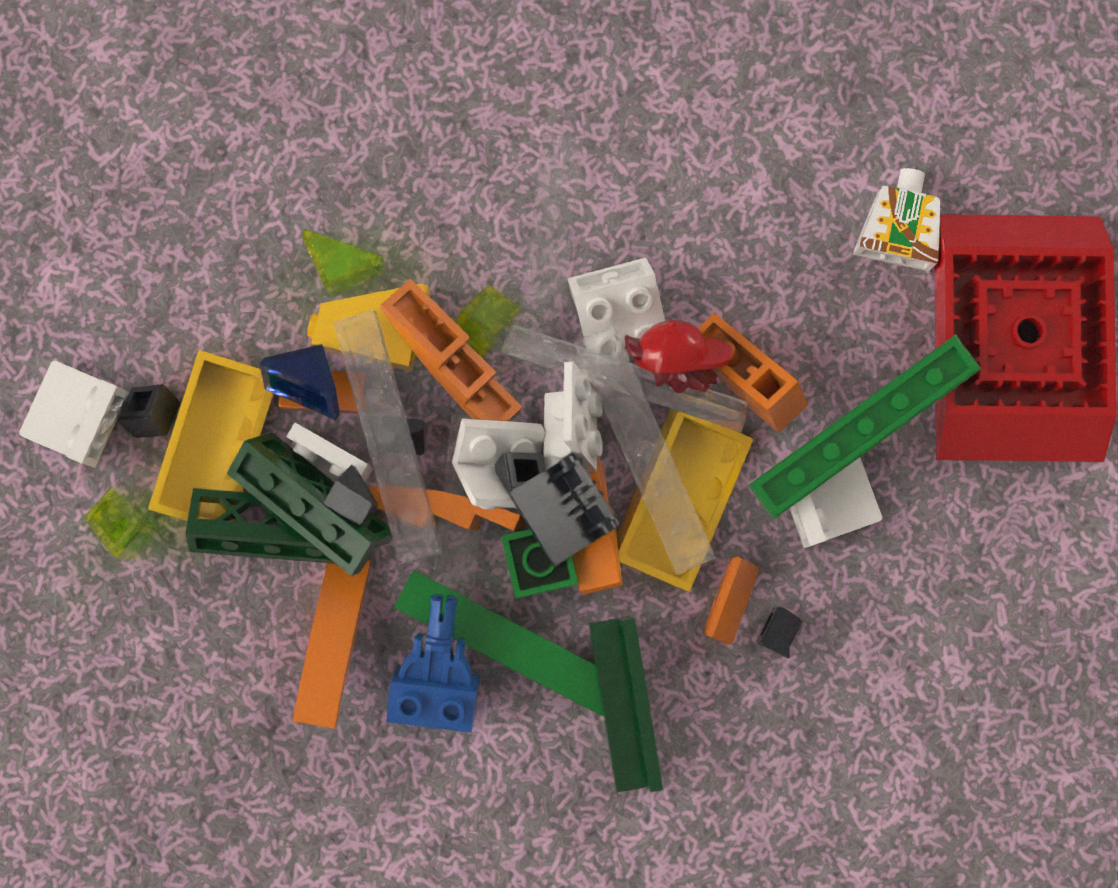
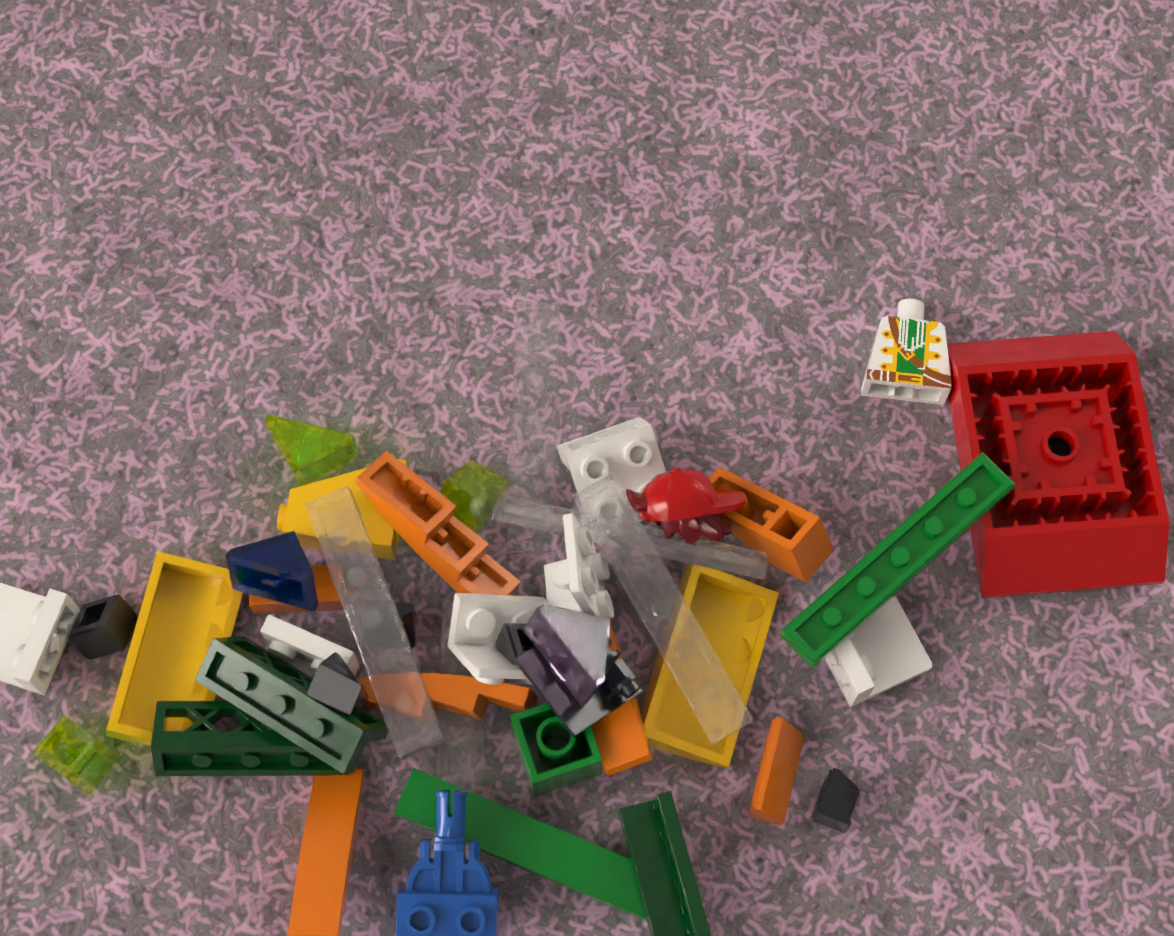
camera: 10 degrees left, 15 degrees down
(562, 487) = (572, 645): none -> slope

